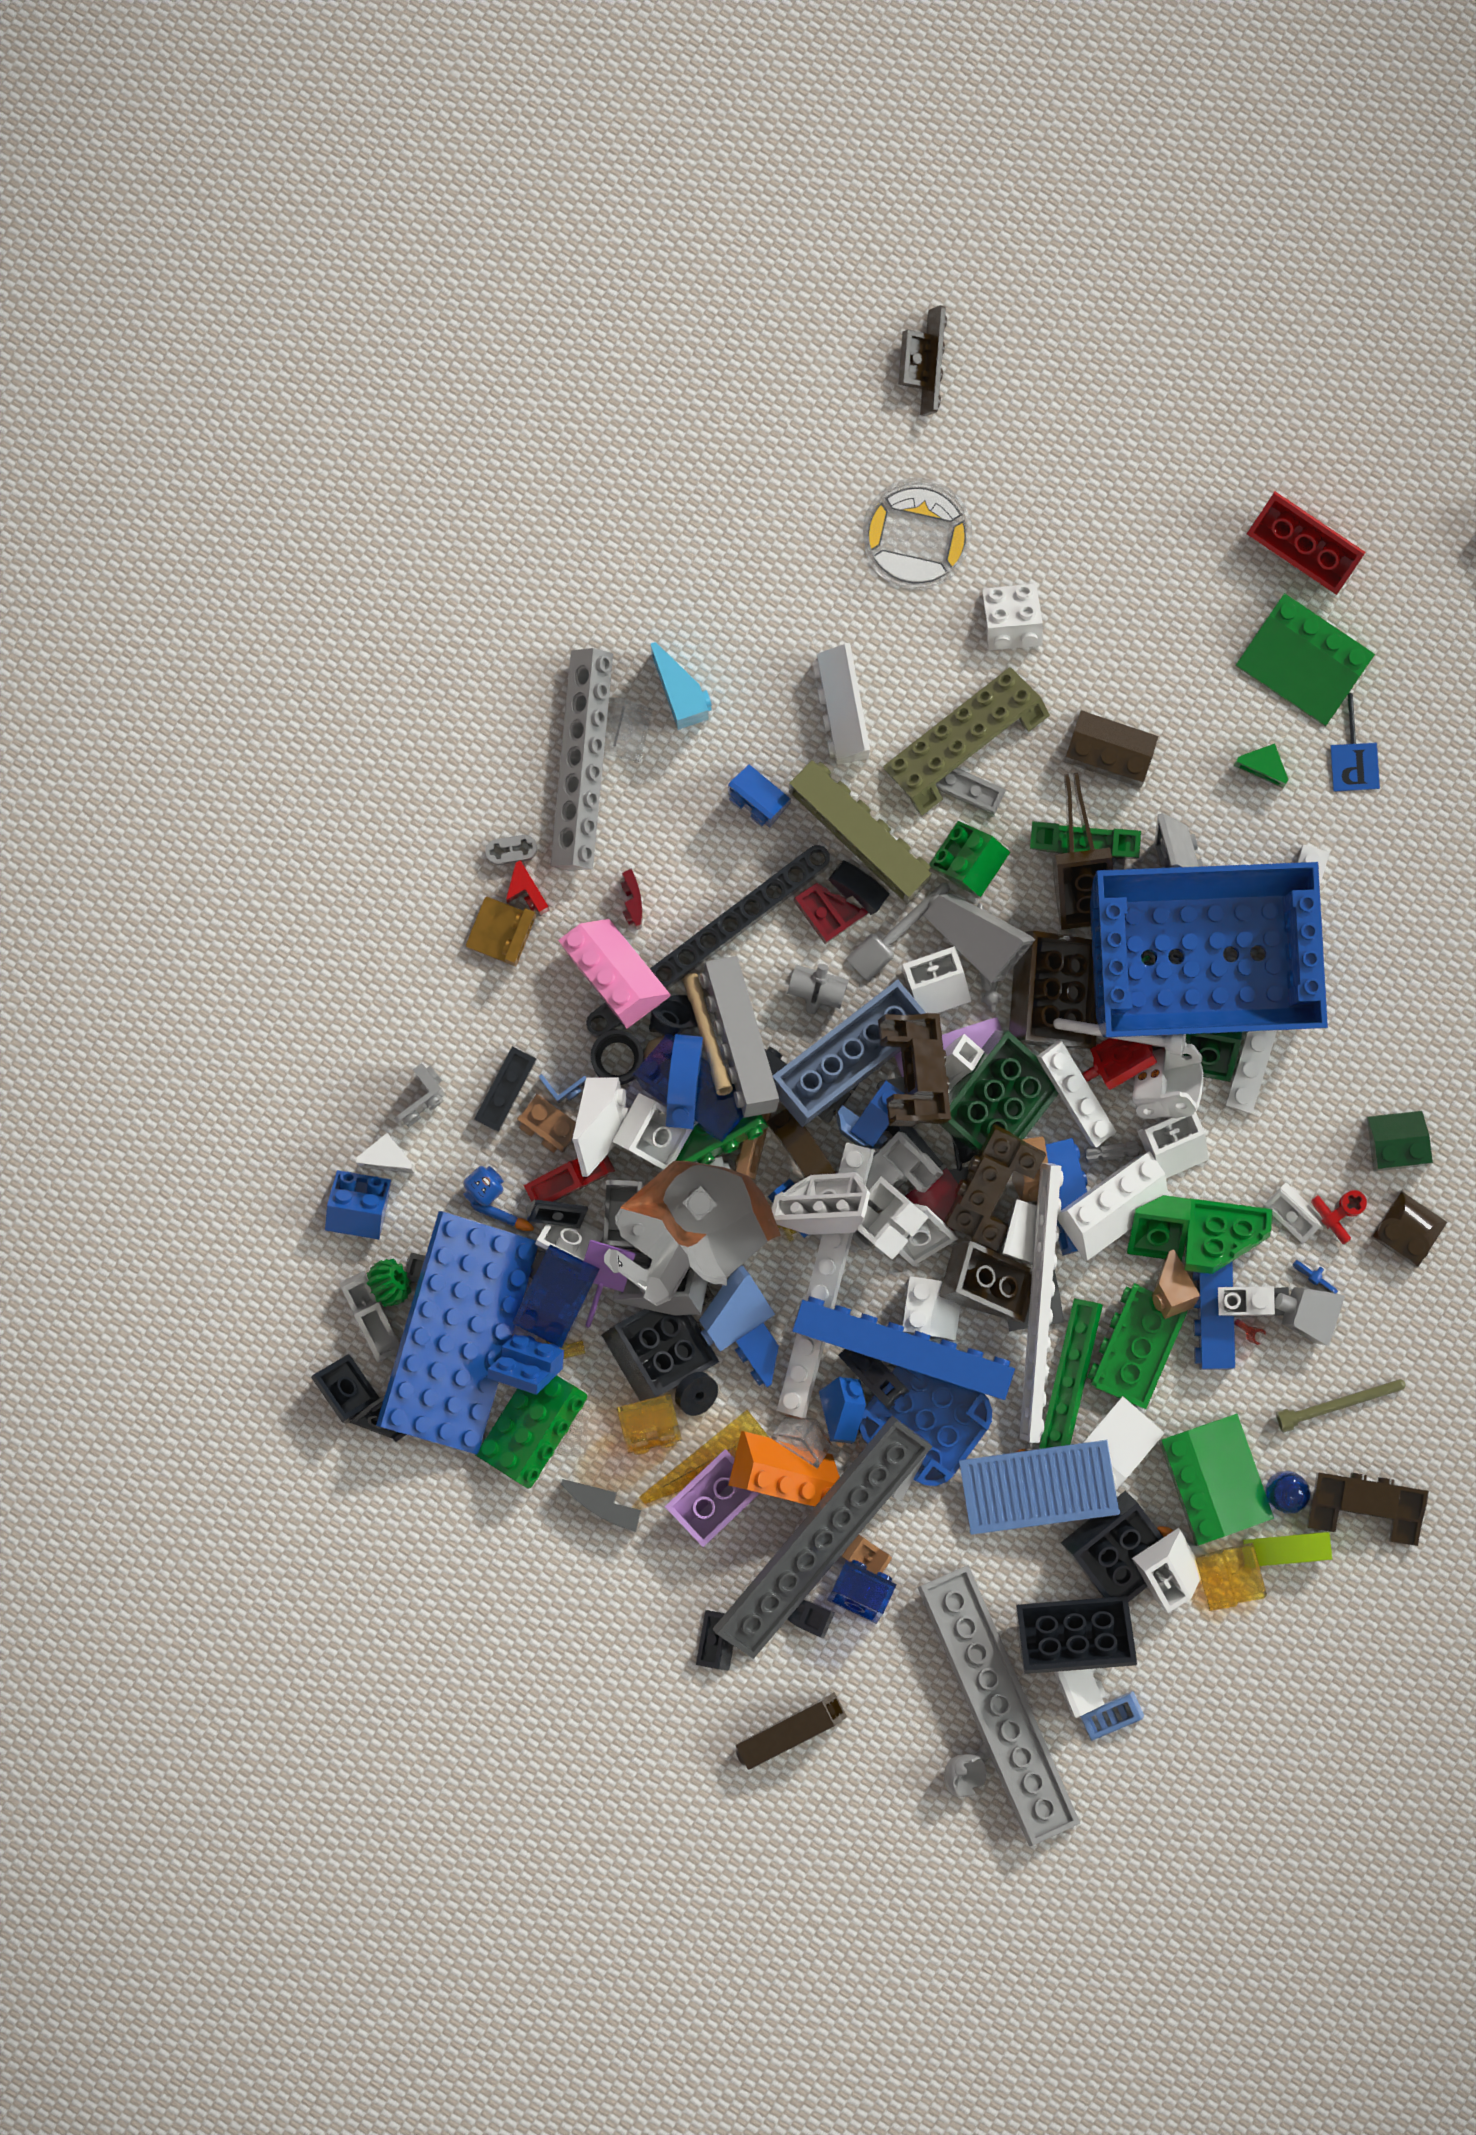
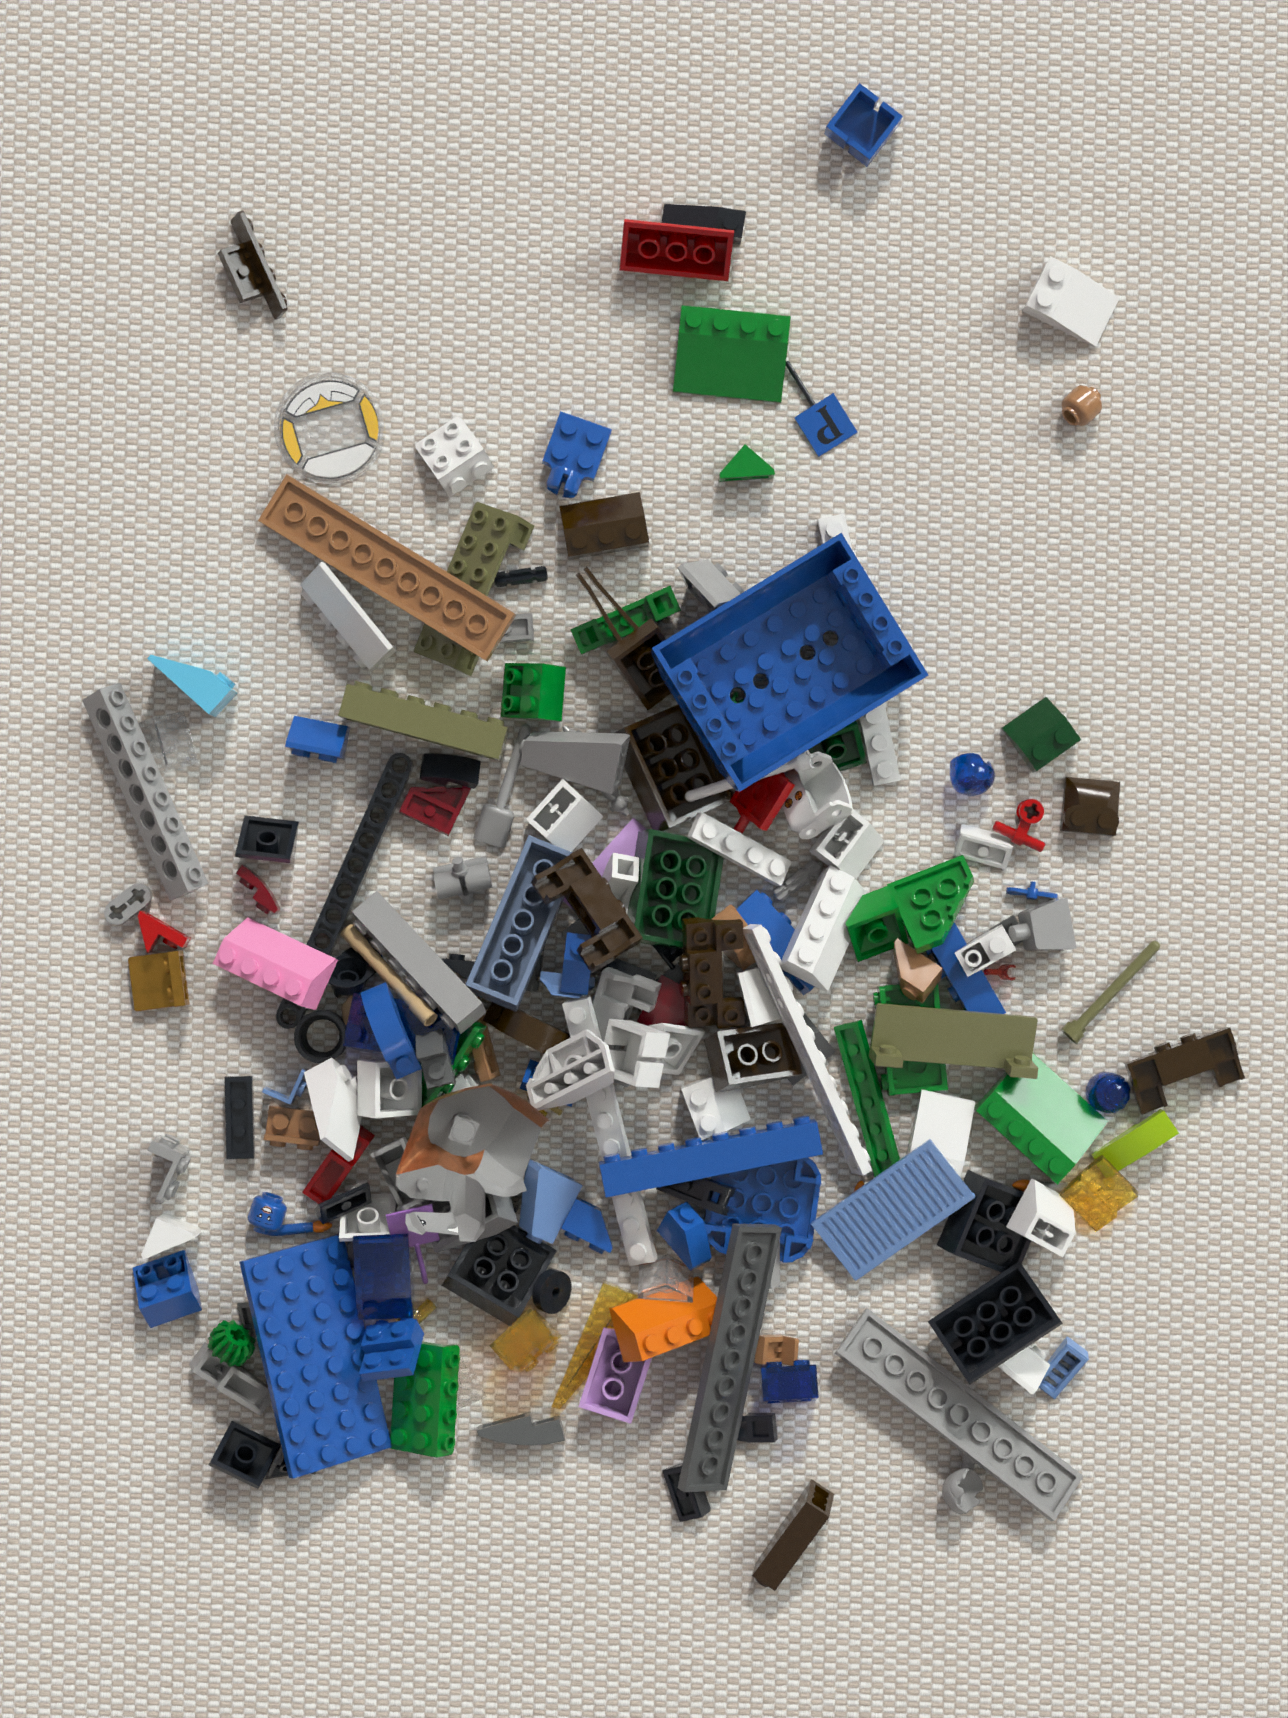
camera: 25 degrees left, 5 degrees up
(664, 861) = (267, 839): none -> black slope
(709, 1127) = (435, 1059): none -> dark grey slope
(901, 680) = (387, 567): none -> medium nougat plate
(1013, 753) = (521, 576): none -> black axle
(1119, 671) = (574, 453): none -> blue plate
(1176, 1363) = (953, 1038): none -> olive bracket
(1318, 1141) = (971, 774): none -> clear blue hair
(1349, 529) = (706, 217): none -> black slope

